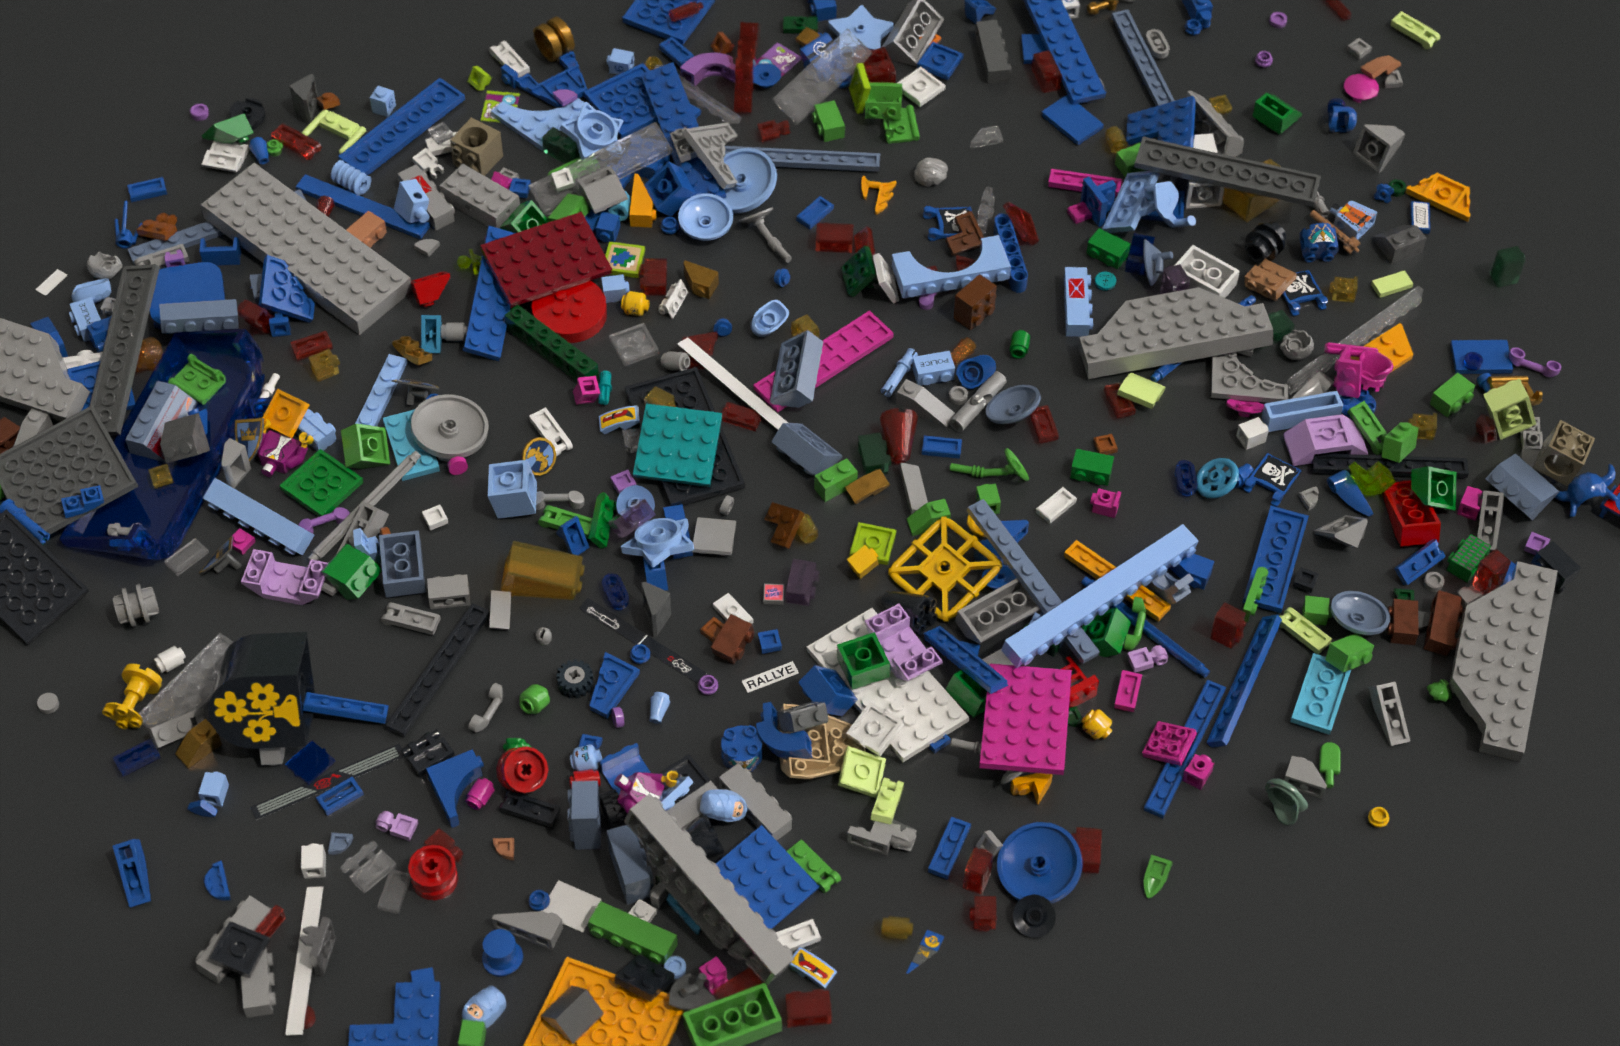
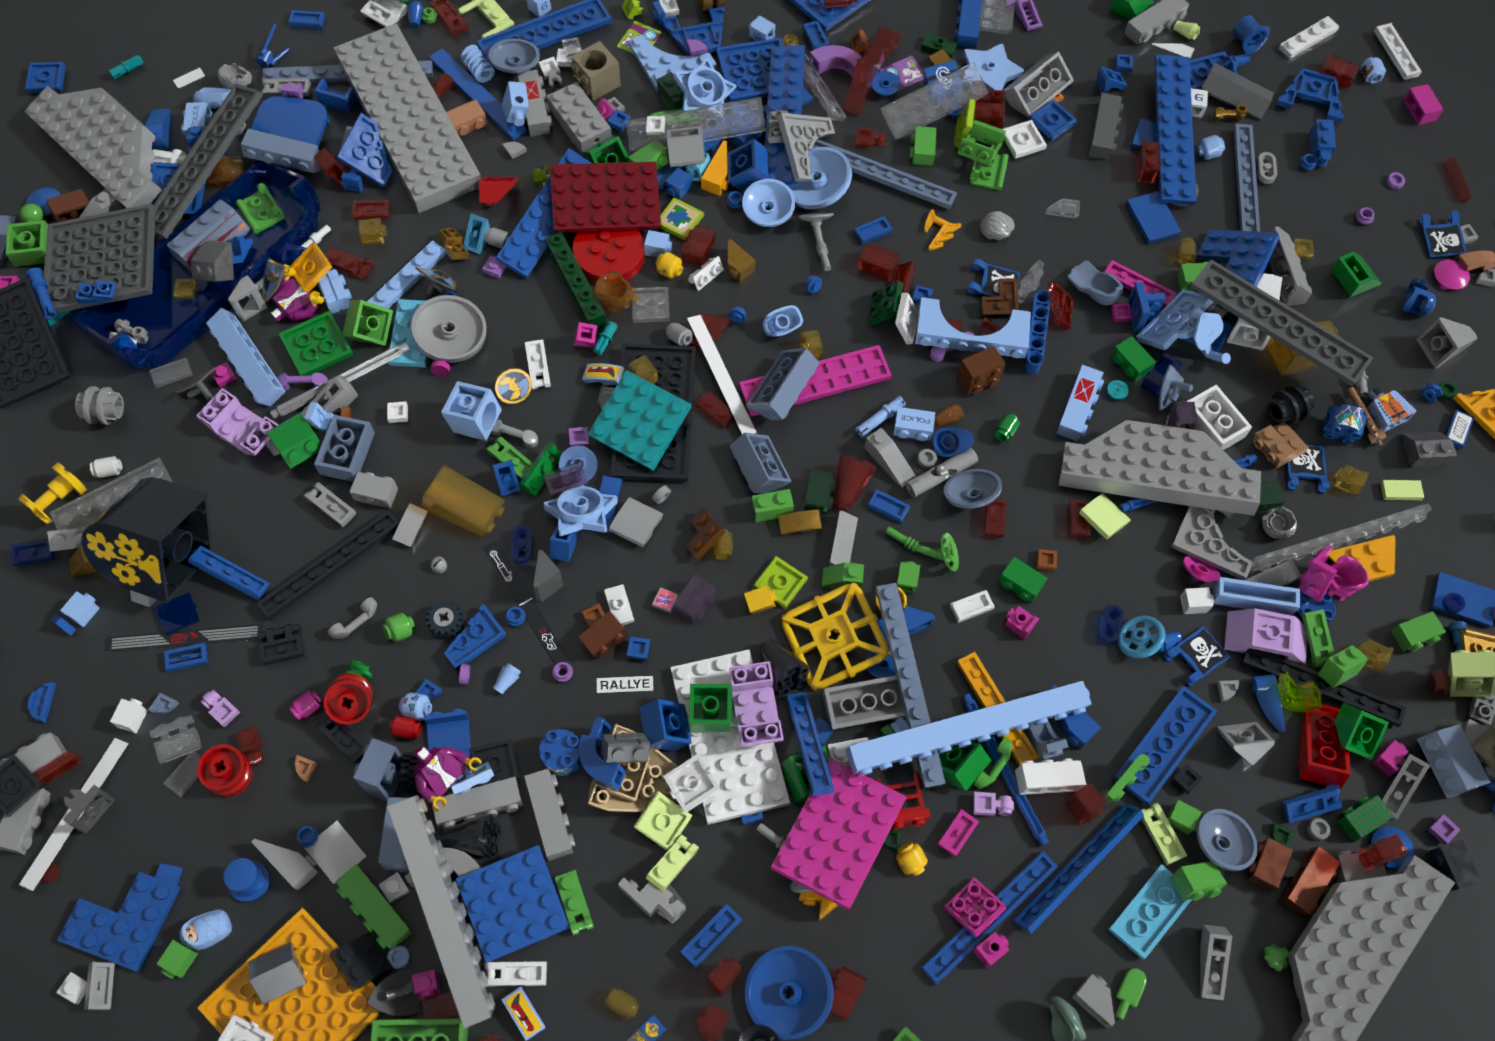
camera: 20 degrees right, 10 degrees up
(160, 229) = (298, 58): dark orange hinge -> none
(318, 400) = (349, 263): none -> clear red plate
(388, 158) = (514, 55): none -> sand blue dish
(450, 780) = (284, 681): blue arch -> none
(462, 360) = (493, 267): none -> medium lavender plate
(596, 341) = (614, 291): none -> clear orange hair
(723, 805) = (513, 809): light blue piece -> none
(886, 253) = (919, 292): none -> blue tile
(989, 842) = (750, 949): light grey plate -> none
(1051, 194) = (1100, 286): none -> sand blue hair
(1098, 40) = (1211, 147): none -> light blue head
(1187, 617) = (1050, 776): none -> white brick
(1335, 348) = (1336, 551): dark pink axle -> none
(1341, 58) = (1443, 239): none -> flag

